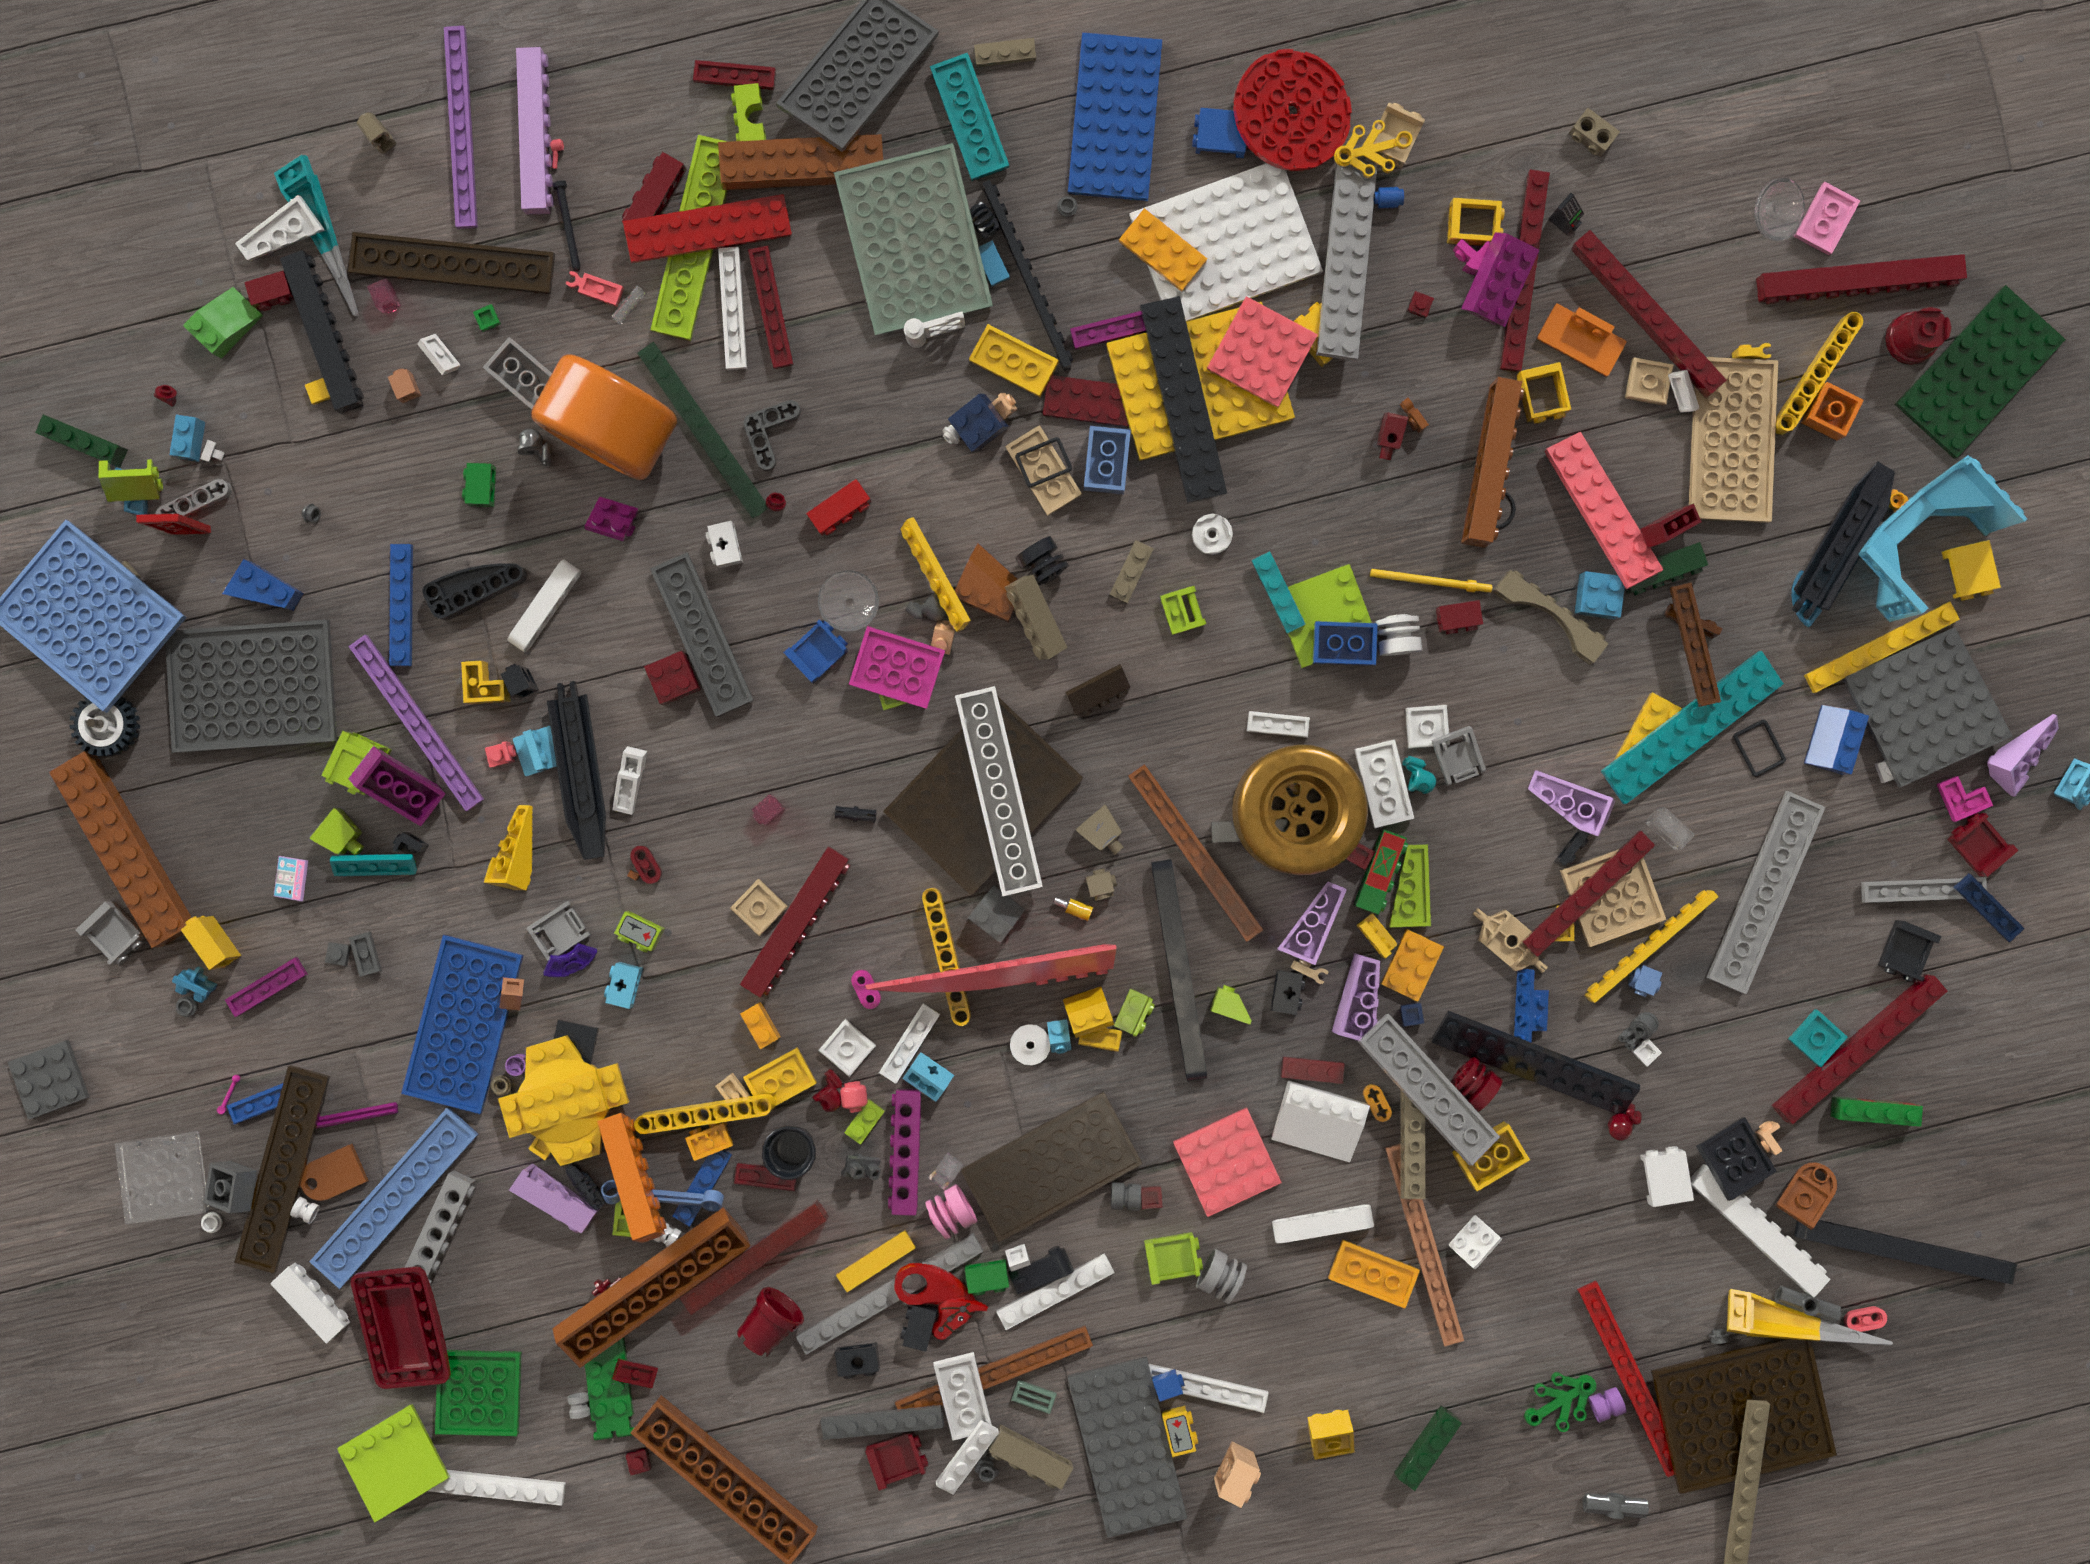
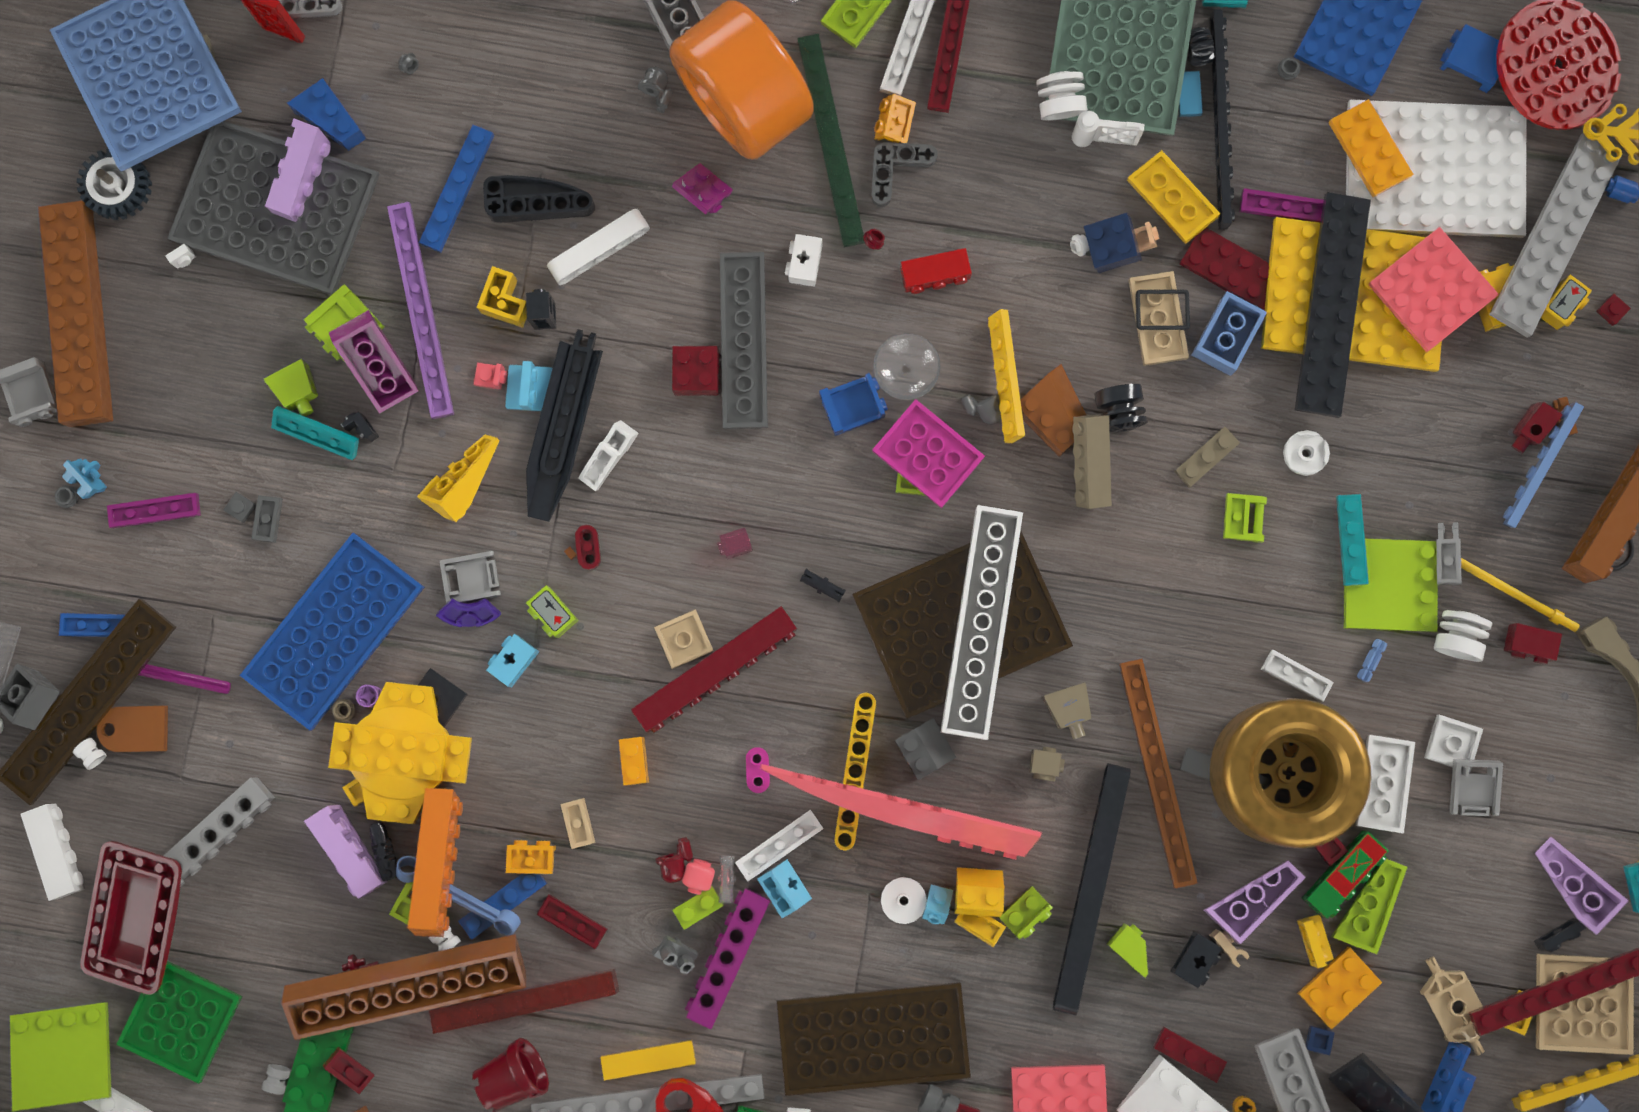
camera: 30 degrees right, 5 degrees down
(191, 762) = (181, 256): none -> white plate
(210, 942) = (119, 441): yellow brick -> none
(222, 1109) = (54, 615): dark pink hinge -> none
(258, 649) = (298, 170): none -> lavender wedge
(290, 878) = (227, 411): piece -> none
(393, 1198) = (184, 779): medium blue plate -> none
(479, 484) = (586, 102): green brick -> none
(511, 993) = (395, 620): nougat panel -> none
(696, 1118) = (527, 824): yellow beam -> none
(750, 390) = (894, 119): none -> light orange bracket
(781, 1078) = (629, 826): yellow plate -> none
(789, 1152) = (608, 906): black piece -> none
(847, 1047) = (712, 822): white tile -> none
(878, 1089) = (726, 879): none -> clear pin
(882, 314) = (1061, 91): none -> white wheel
(943, 636) = (989, 441): light nougat bracket -> none
(946, 1171) = (761, 996): clear brick -> none
(950, 1212) = (749, 1042): bright pink wheel -> none
(1075, 908) = (1009, 777): yellow piece -> none
(1098, 691) = (1125, 563): dark brown slope -> none
(1334, 686) = (1372, 660): none -> medium blue axle
(1345, 643) = (1404, 620): blue brick -> none
(1359, 999) = (1271, 999): lavender wedge -> none
(1363, 573) = (1448, 557): none -> light grey hinge
(1376, 316) = (1565, 301): none -> brick
(1409, 455) = (1546, 457): none -> medium blue plate
(1420, 779) = (1425, 794): teal piece -> none

